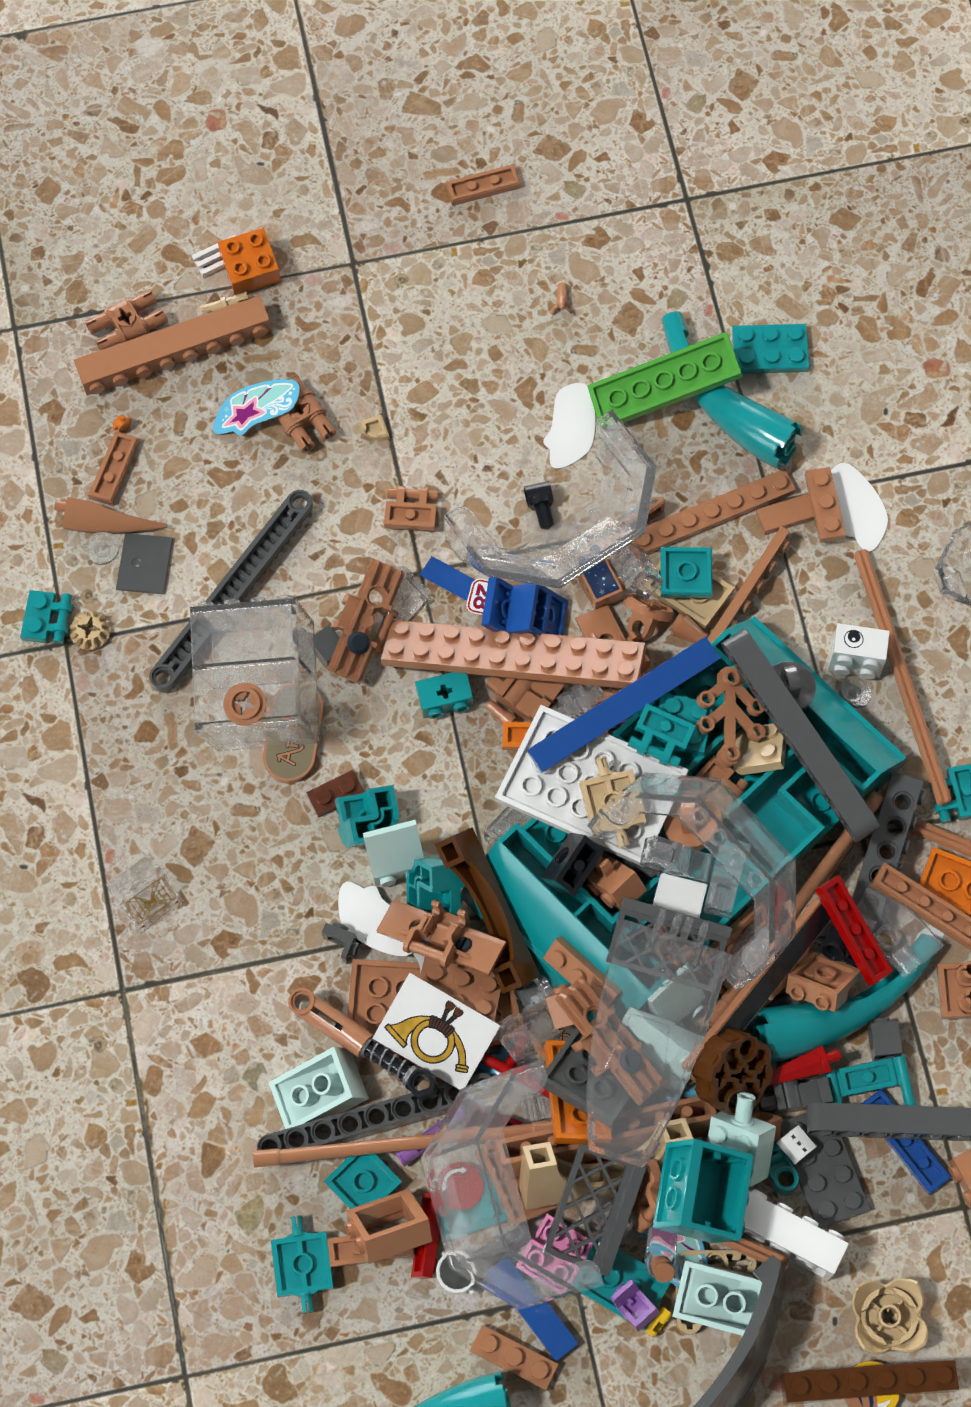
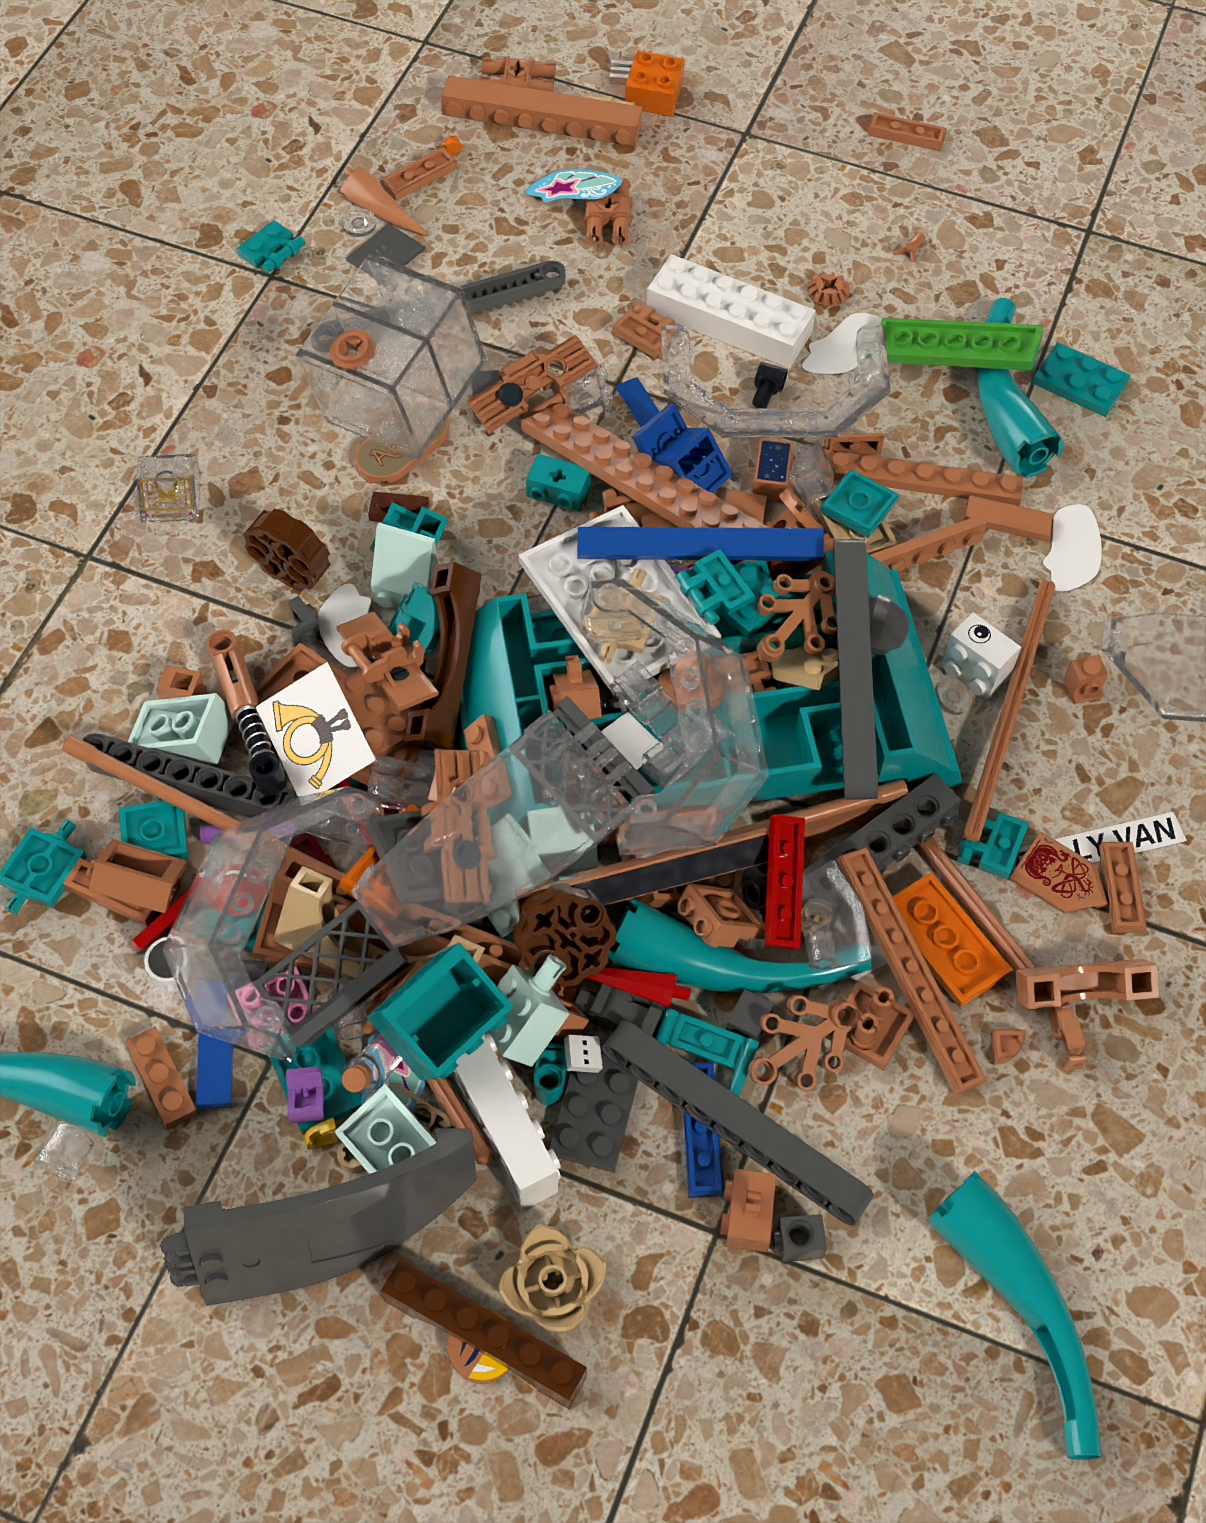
camera: 30 degrees right, 10 degrees down
(96, 638) = (297, 282): tan gear -> none
(284, 1050) = (180, 683): none -> nougat brick
(291, 891) = (287, 549): none -> reddish brown connector
(374, 428) = (662, 253): tan tile -> none
(466, 452) = (731, 310): none -> white brick
(532, 388) = (828, 296): none -> nougat gear
(572, 864) = (544, 647): black brick -> none
(825, 504) = (1039, 524): nougat plate -> none
(937, 1032) = (809, 1040): none -> nougat plant
(939, 619) = (1085, 679): none -> nougat brick

